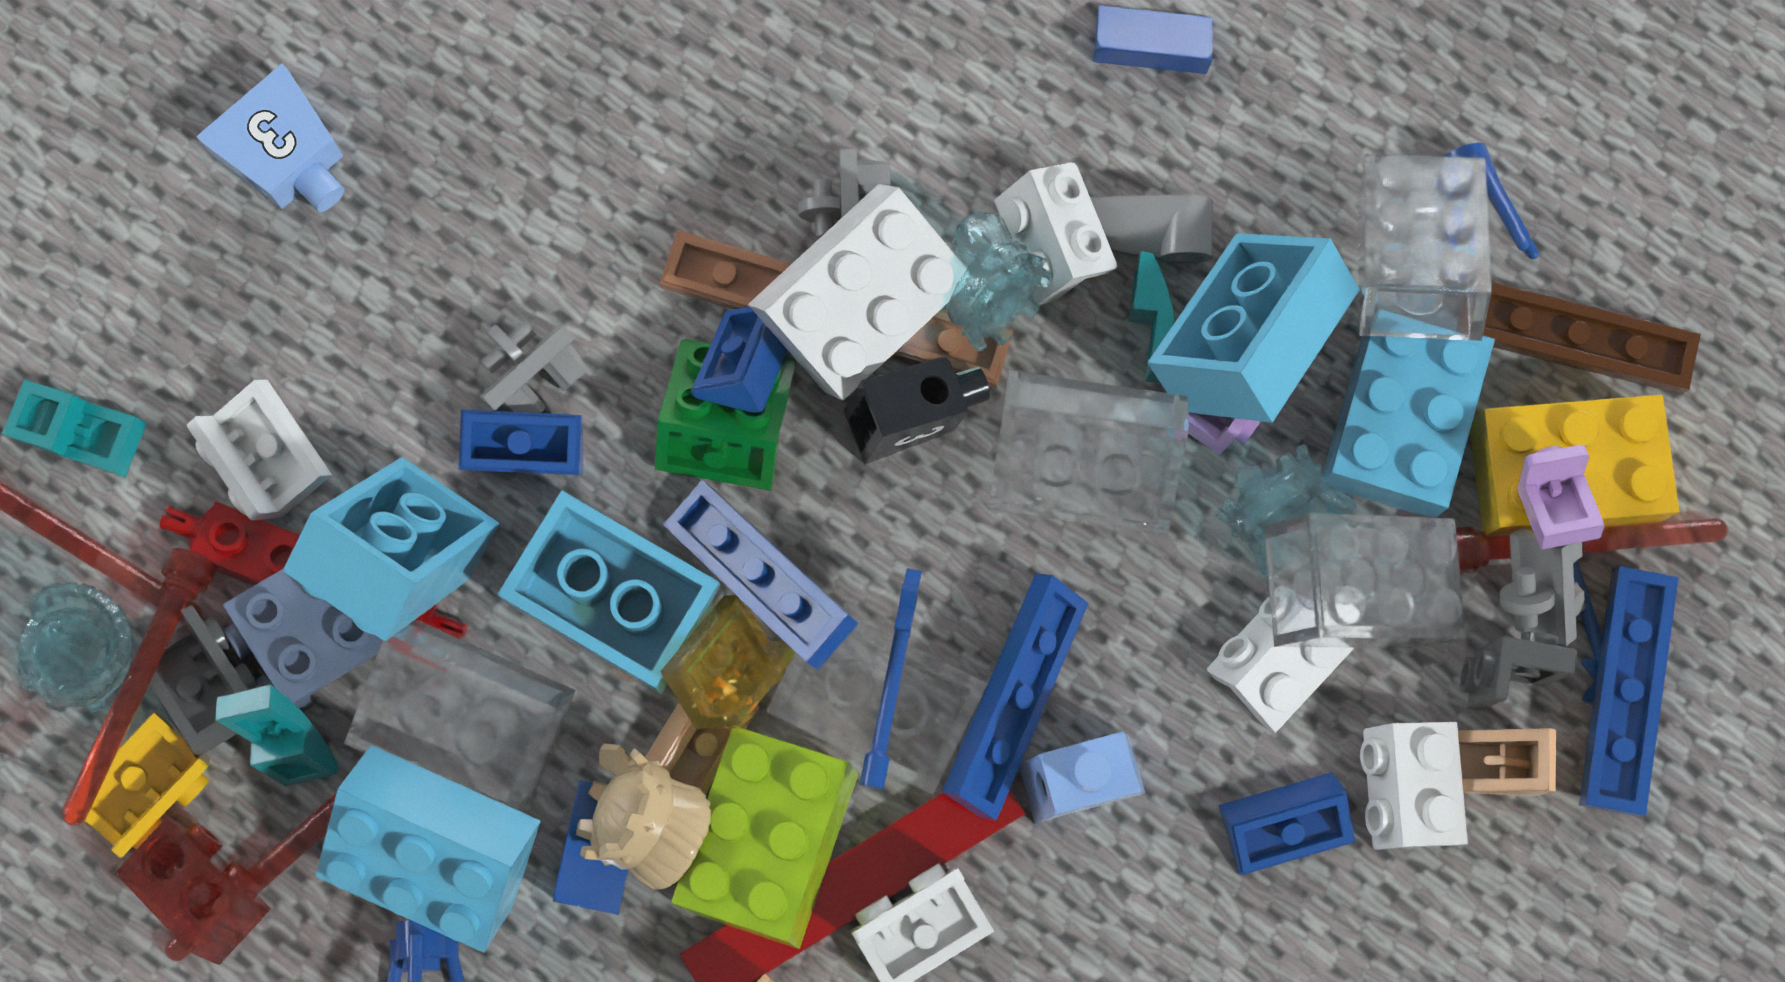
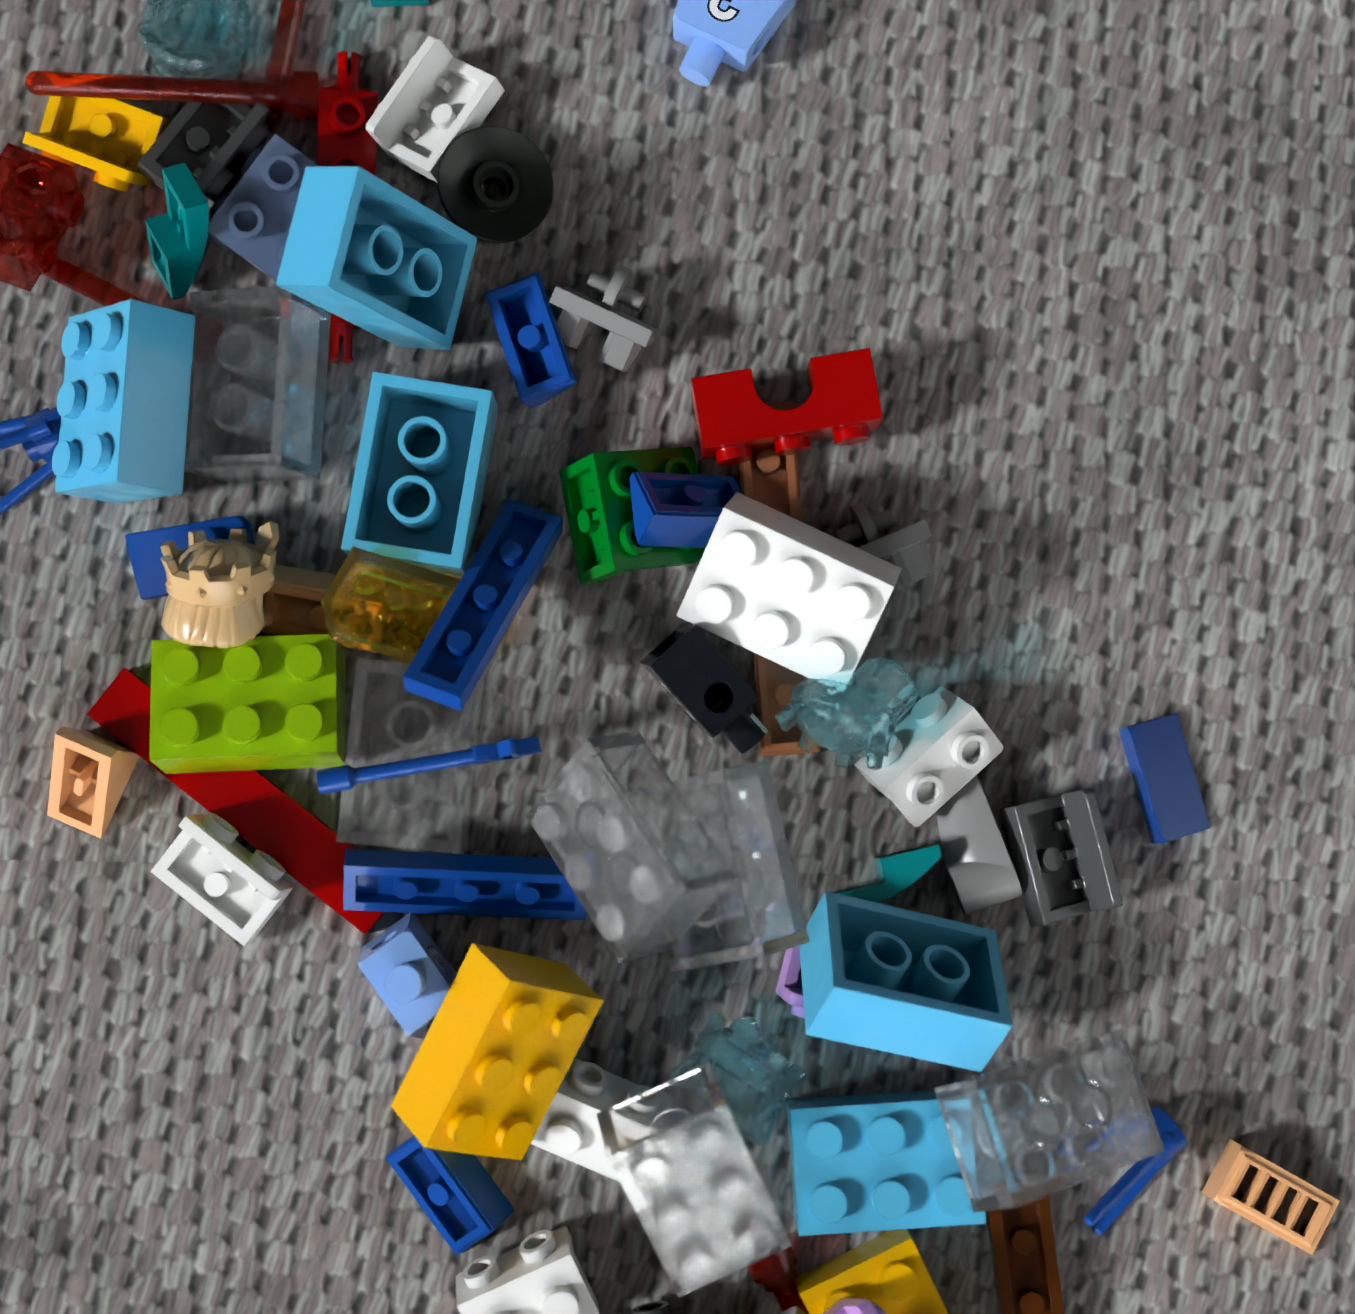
camera: 75 degrees right, 5 degrees up
(352, 398) = (504, 159): none -> pearl dark grey dish
(677, 283) = (737, 422): none -> red arch
(1039, 522) = (629, 845): none -> clear brick
(1186, 718) = (496, 1053): none -> yellow brick
(1191, 150) = (1062, 857): none -> dark grey bracket
(1525, 121) = (1231, 1171): none -> light nougat slope

